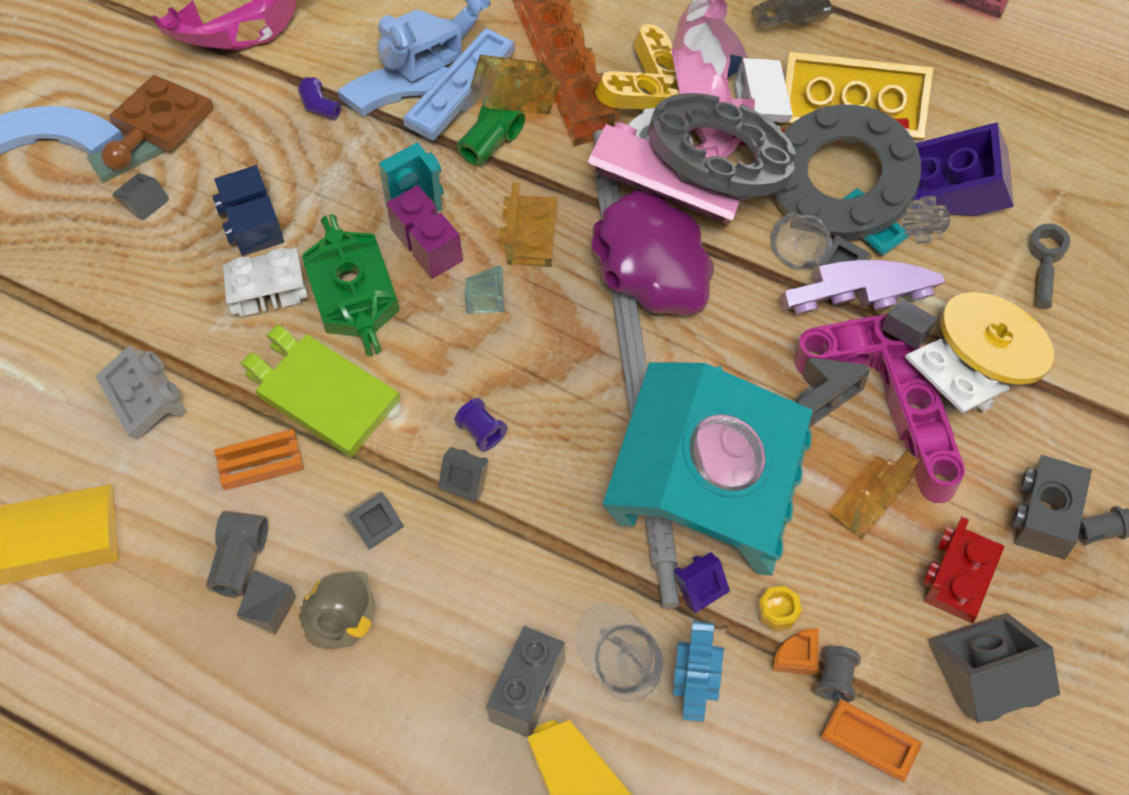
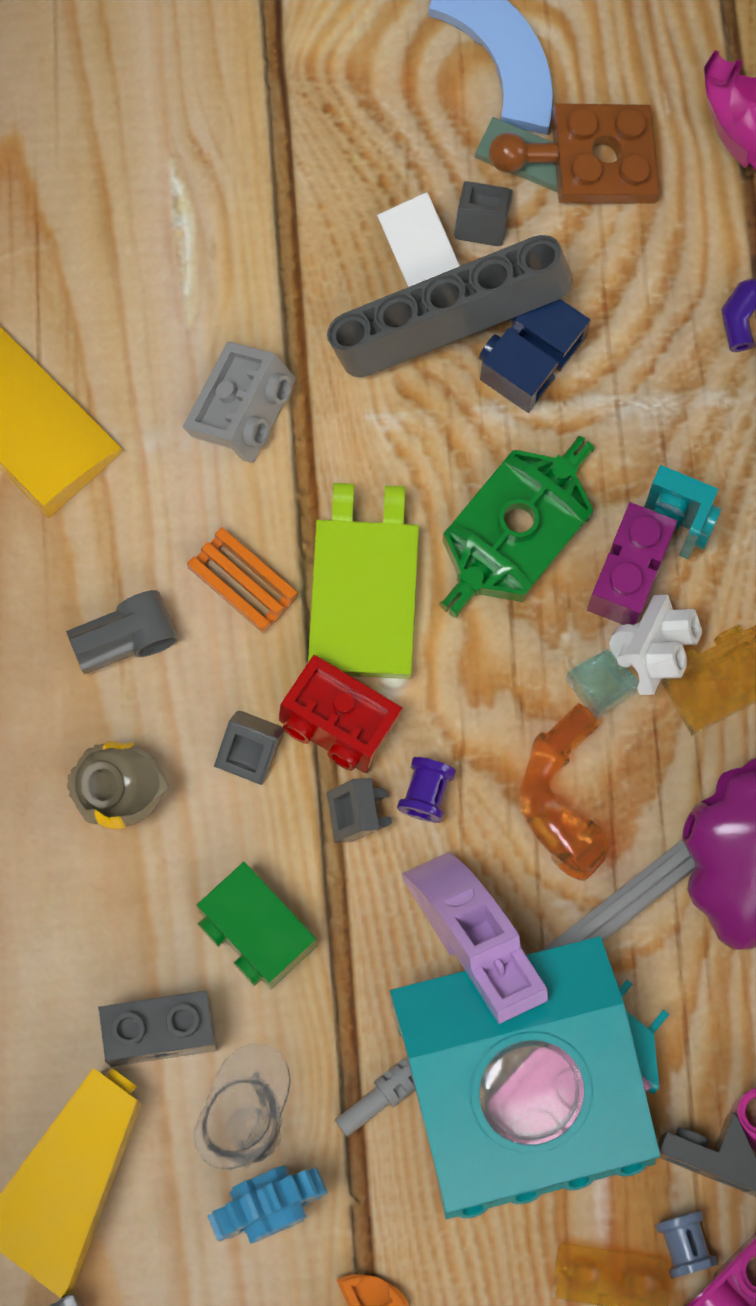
camera: 55 degrees right, 15 degrees up
(138, 231) = (418, 239): none -> white hinge
(183, 232) = (451, 306): none -> dark grey beam
(262, 276) = (459, 428): white hinge -> none
(266, 602) = (87, 702): dark grey slope -> none
(394, 447) = (338, 715): none -> red bracket
(485, 238) = (656, 643): none -> white hips
(499, 578) = (255, 926): none -> green brick
(573, 360) = (574, 845): none -> clear orange piece
(597, 426) = (478, 934): none -> lavender slope
(702, 581) = (384, 1147): dark purple tile -> none
(779, 608) = (407, 1249): yellow tile -> none
(874, 438) = (686, 1244): none -> sand blue bush

